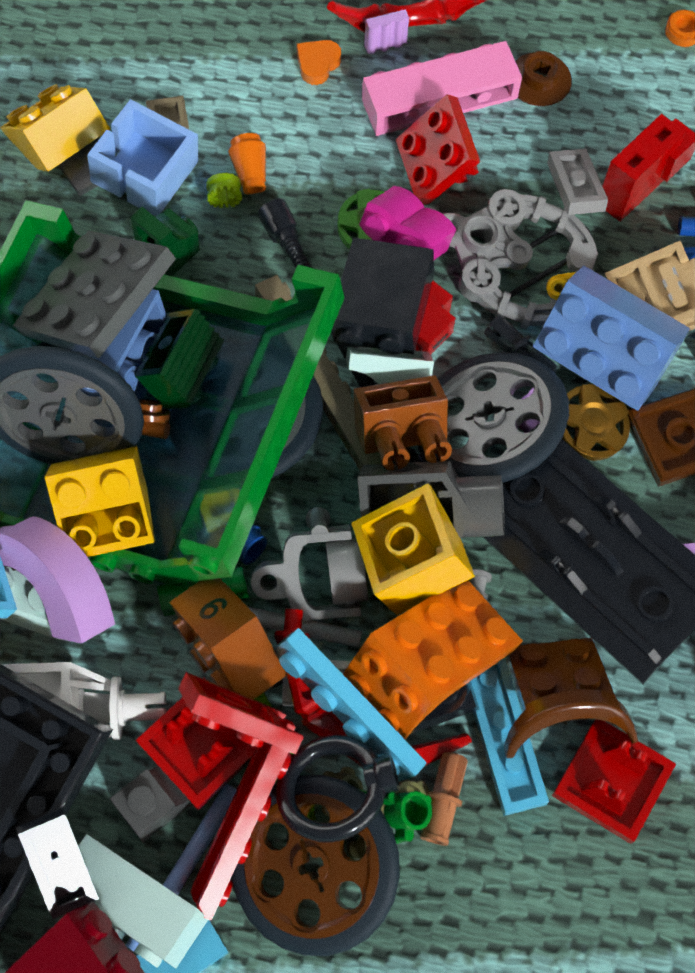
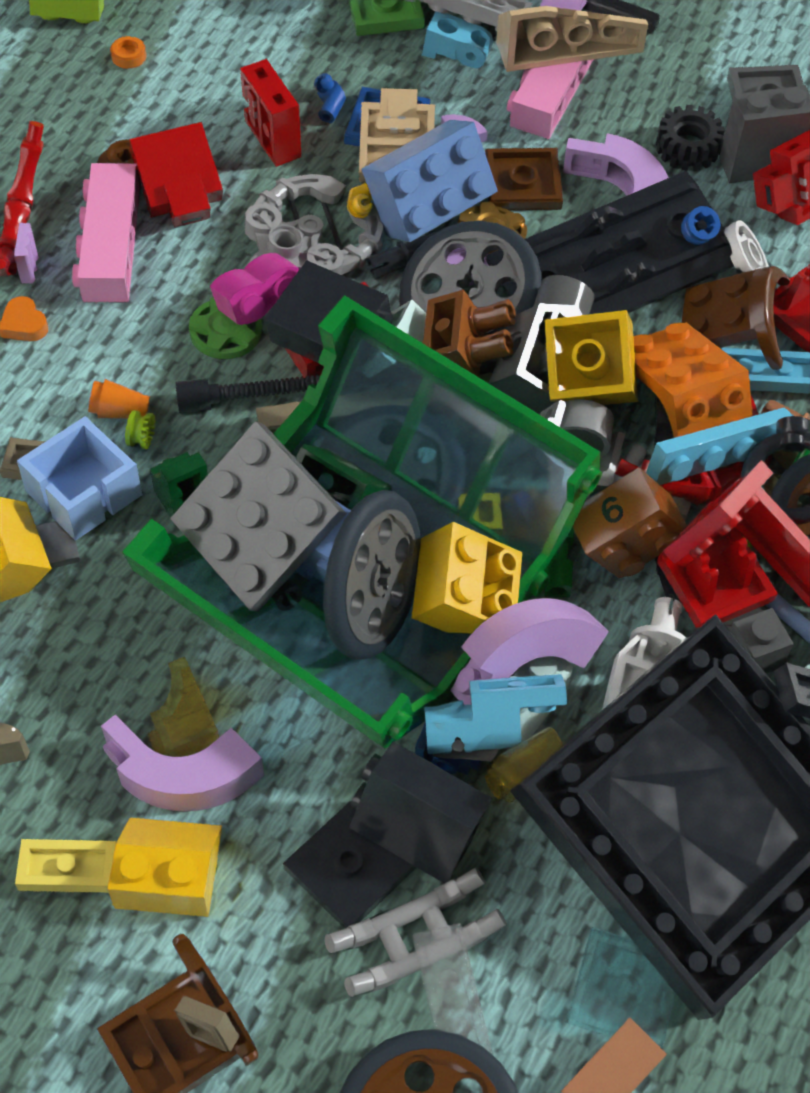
camera: 70 degrees left, 10 degrees down
(438, 150) = (181, 246): red plate -> none
(531, 117) = (177, 173): none -> red piece
(577, 181) = (257, 164): light grey plate -> none
(639, 623) = (703, 236): none -> blue bush
(649, 683) = (746, 250): none -> white wheel

